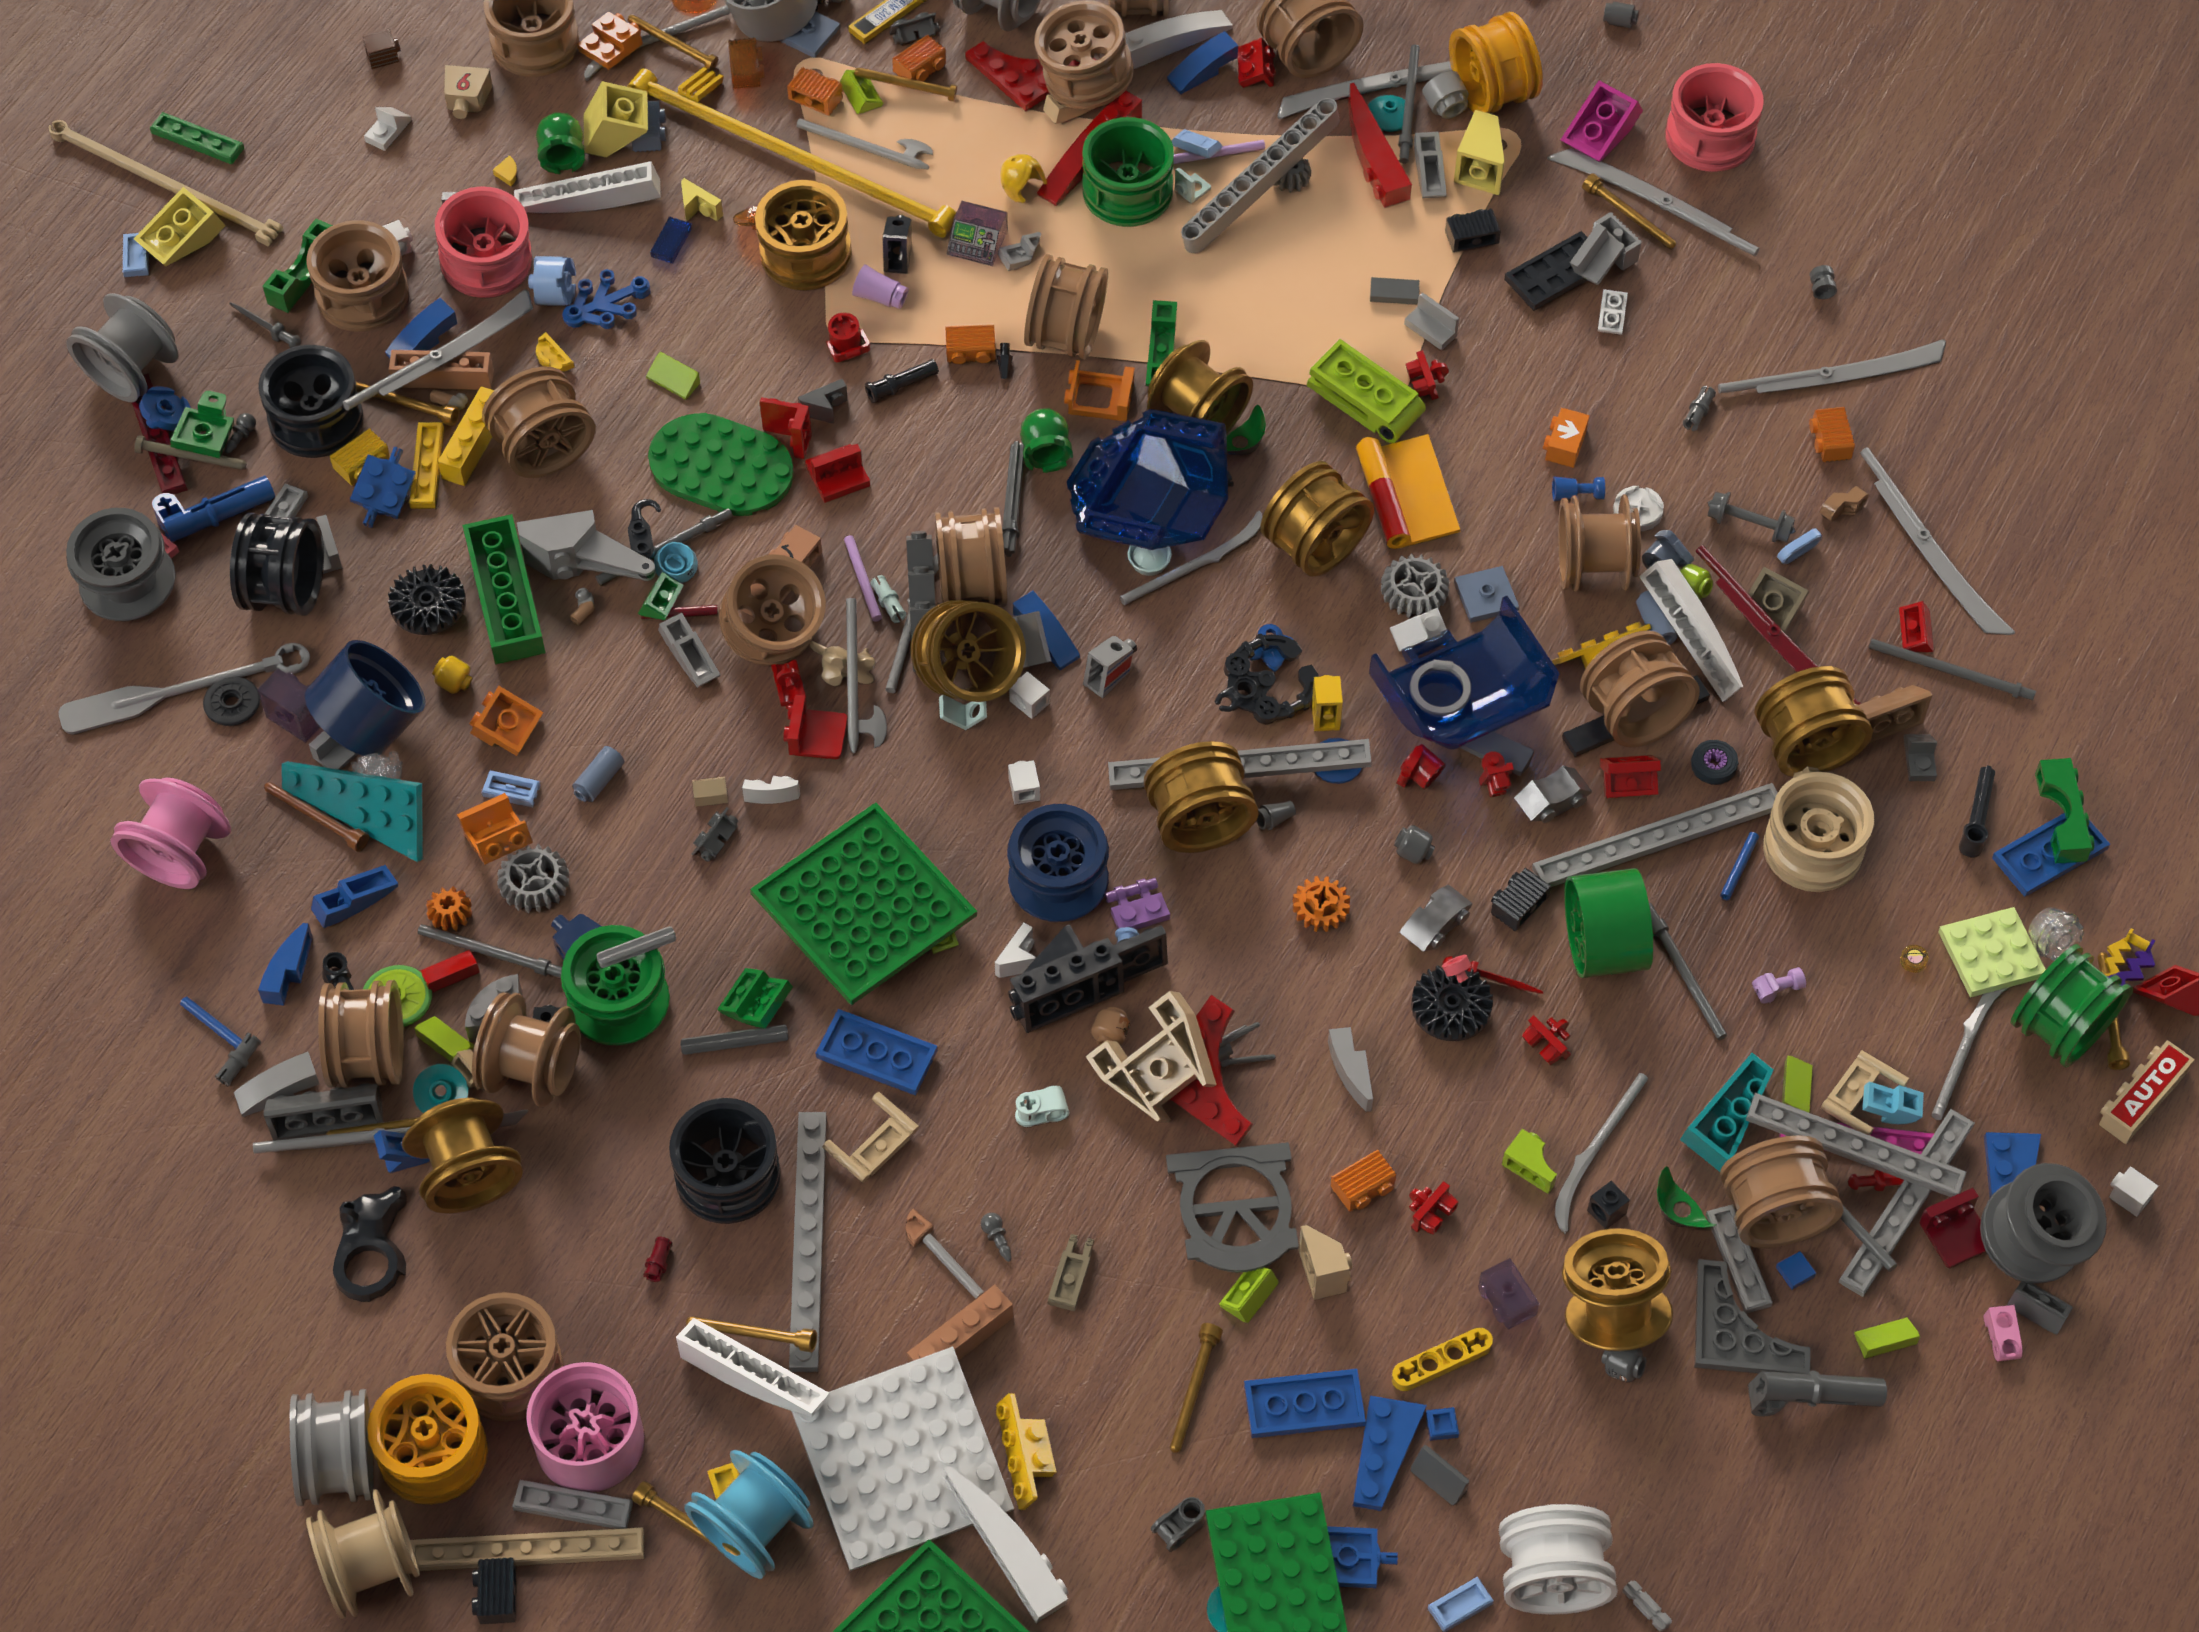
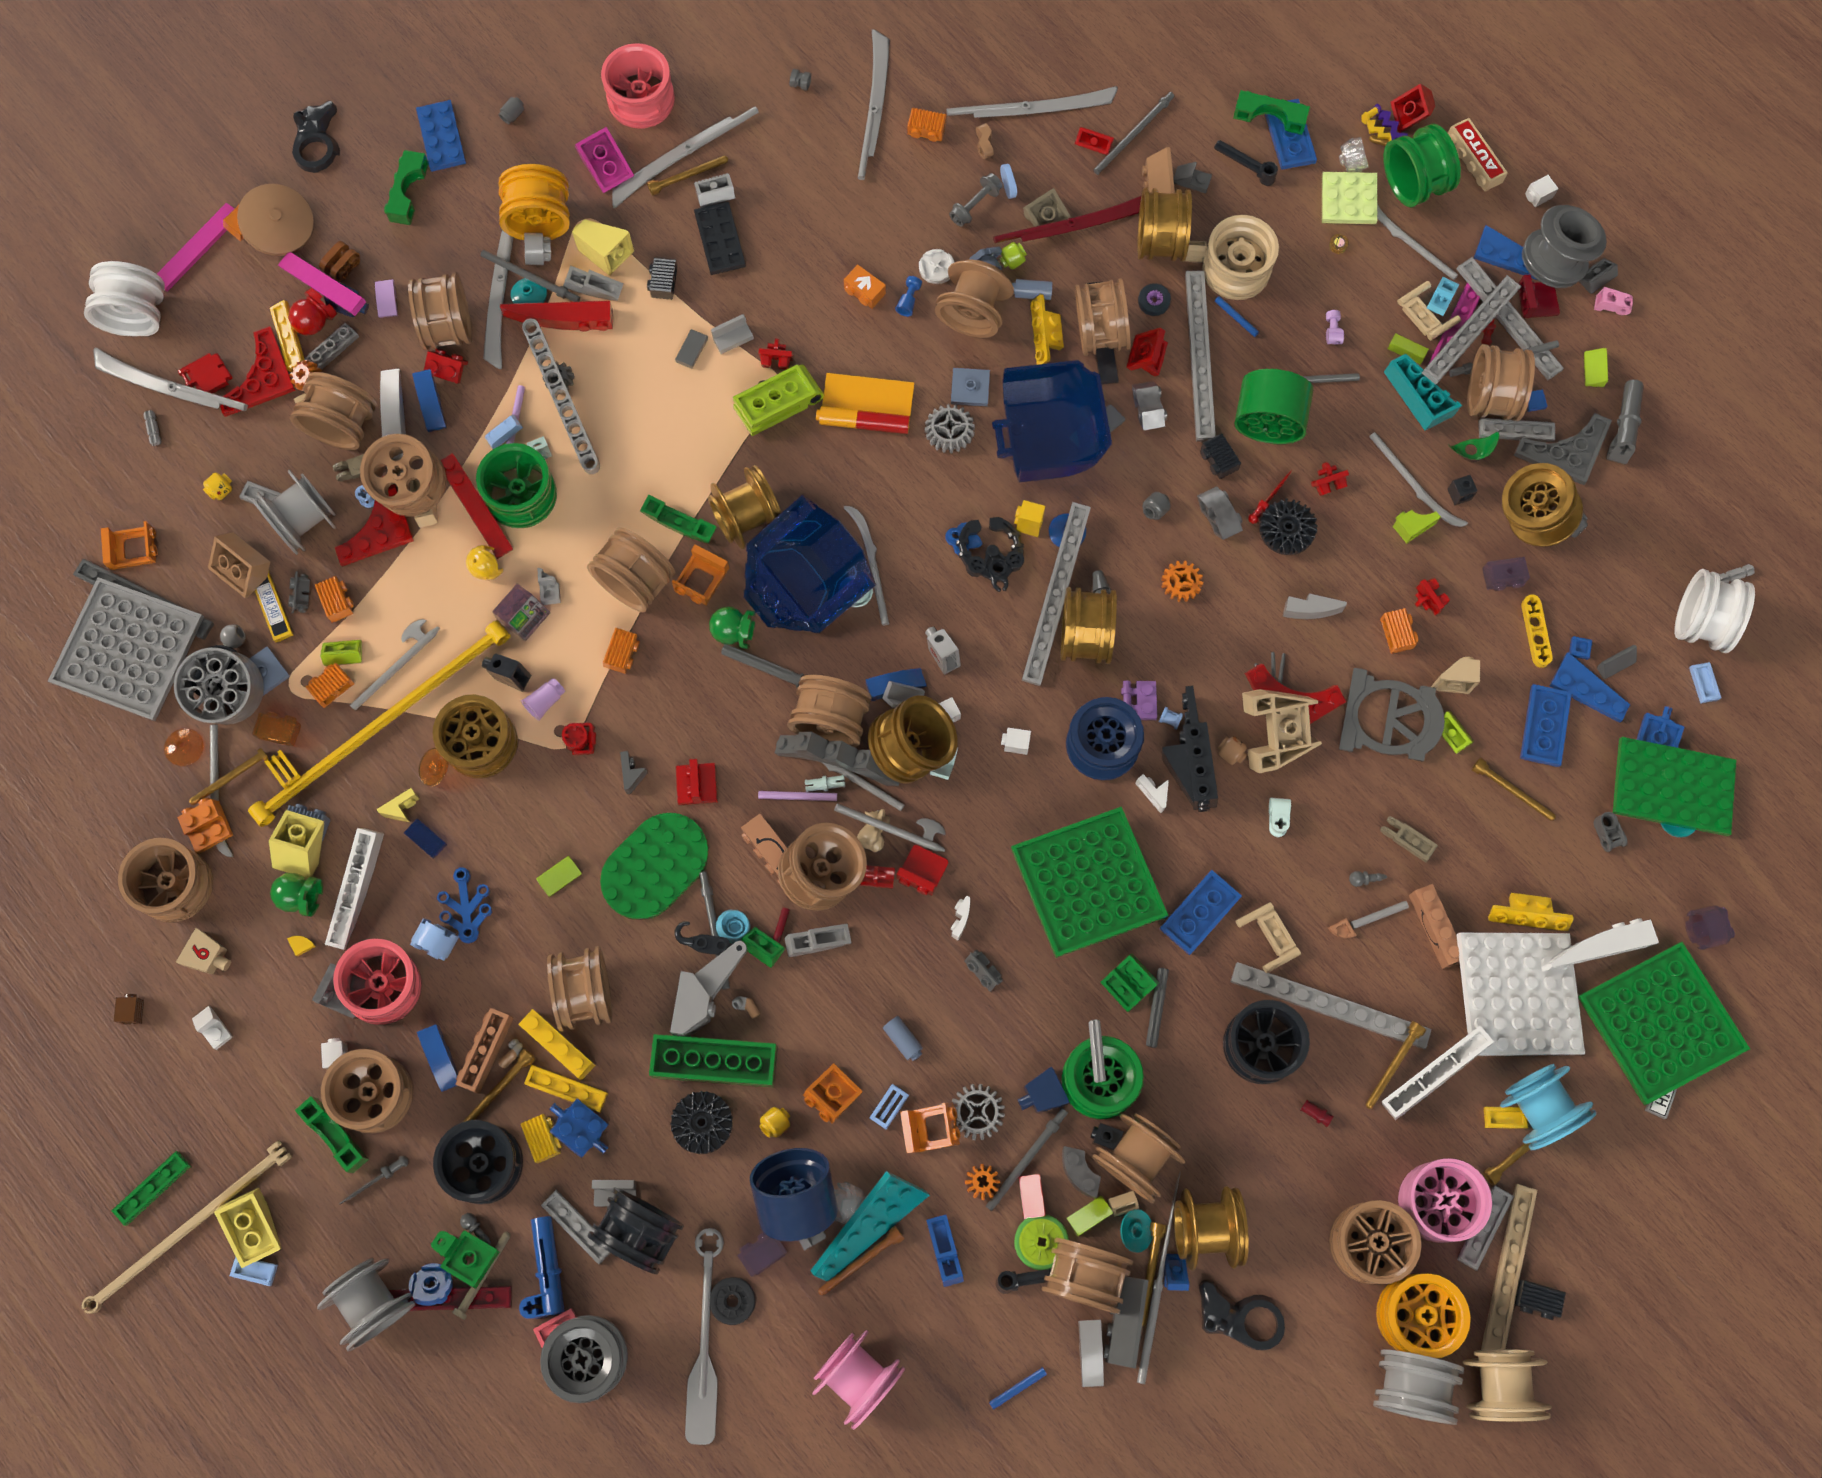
camera: 70 degrees left, 15 degrees up
(238, 1059) = (1058, 1376): dark grey pin -> none
(286, 966) = (990, 1318): blue slope -> none
(506, 315) = (456, 989): light grey piece -> none
(551, 355) = (501, 962): yellow plate -> none
(710, 791) = (944, 961): tan piece -> none
(789, 420) = (645, 796): red bracket -> none
(891, 383) = (632, 721): black pin -> none
(950, 91) = (375, 587): pearl gold bar -> none
(1004, 360) = (643, 632): black bar -> none
(1252, 430) = (781, 485): green piece -> none
(1317, 518) = (885, 467): pearl gold wheel -> none
(1418, 629) = (986, 439): white slope -> none
(1421, 767) = (1099, 478): red piece -> none
(1441, 666) = (1026, 433): light grey piece -> none
(1457, 967) = (1272, 511): coral tile -> none
(1495, 773) = (1125, 433): red hips -> none
(1596, 255) = (727, 205): light grey panel -> none
(1612, 312) = (768, 219): white slope -> none
(1692, 625) = (1053, 268): white slope -> none
(1699, 408) = (872, 196): dark grey pin -> none

